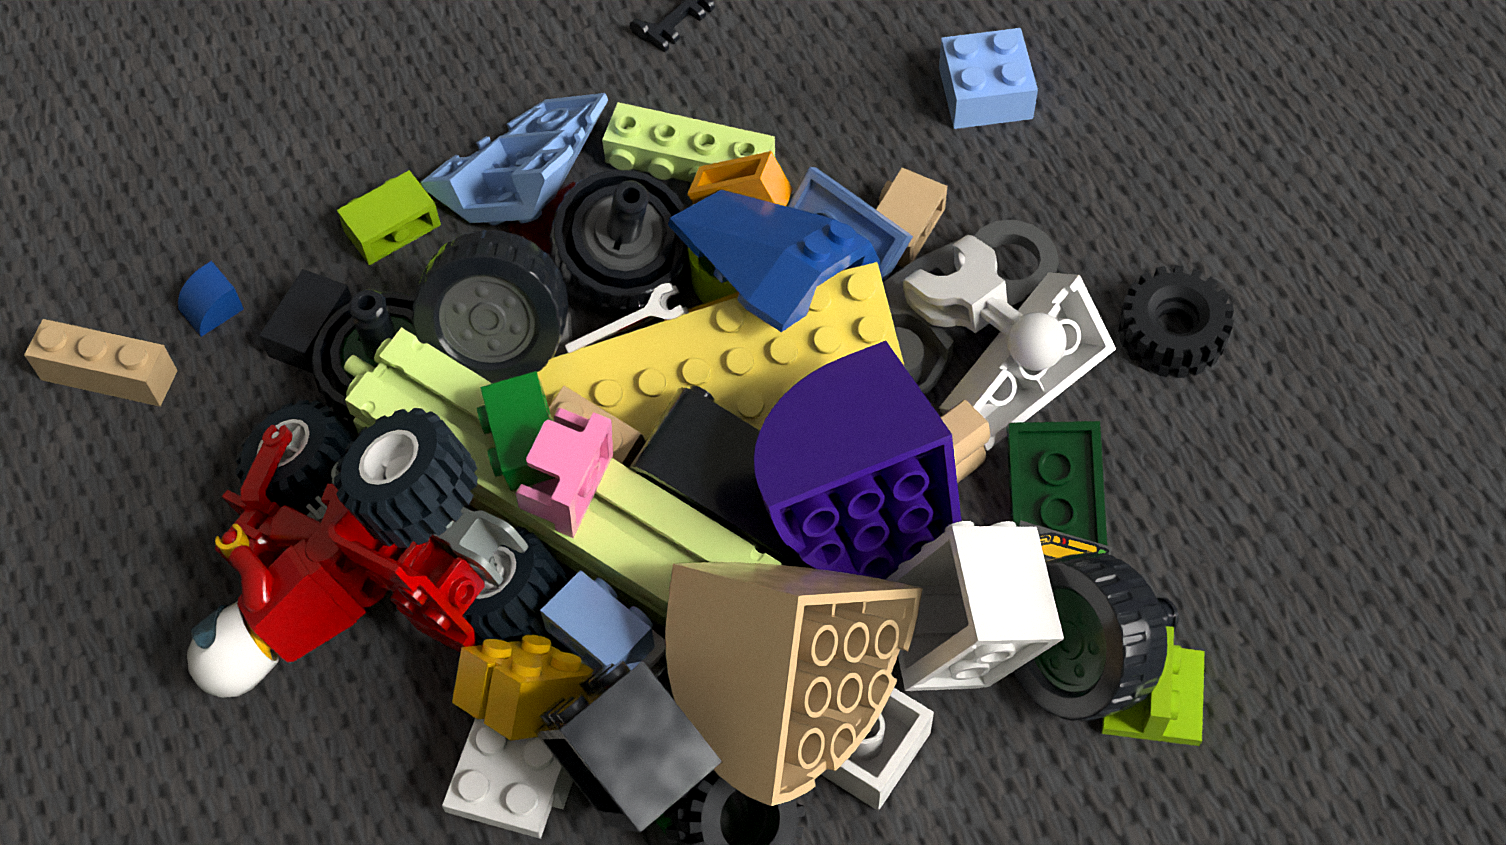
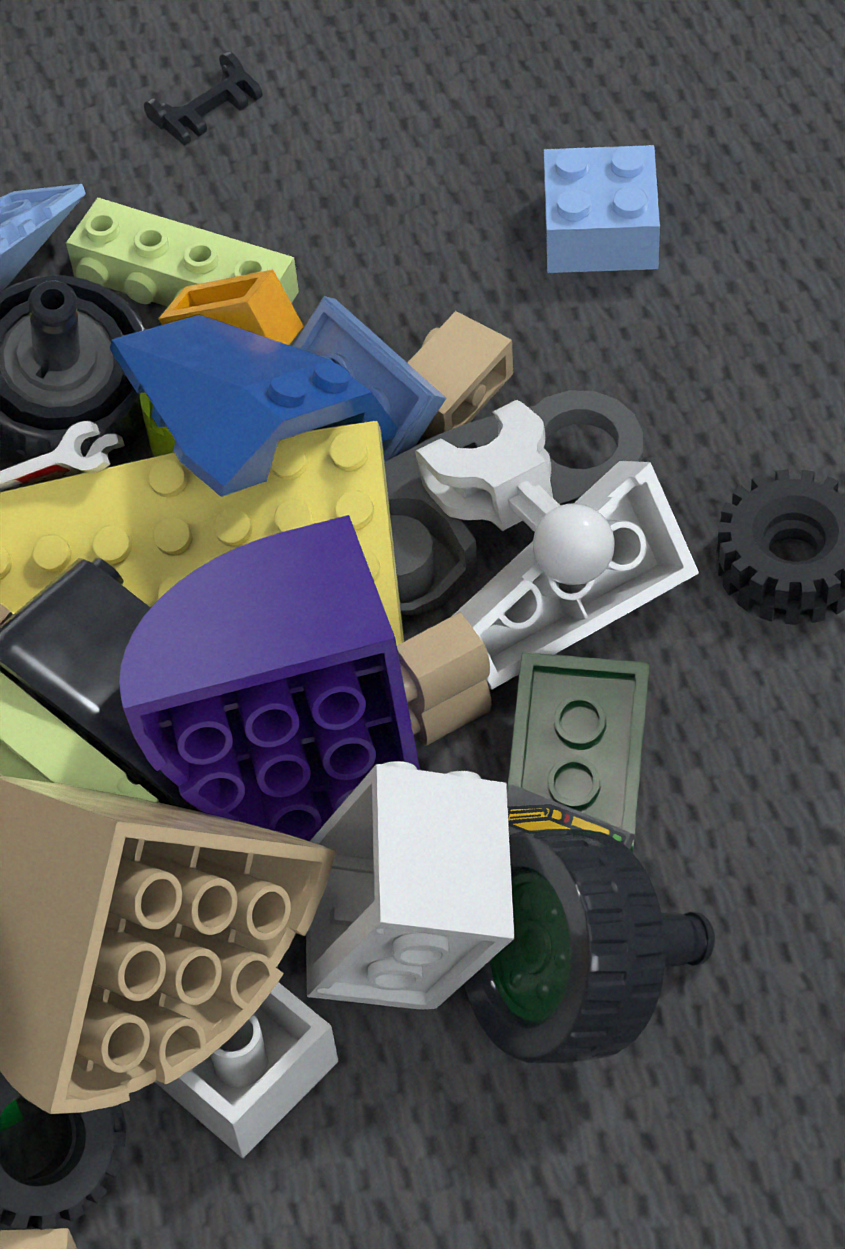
camera: 10 degrees right, 5 degrees down
(1175, 705) = (681, 1052): lime bracket -> none

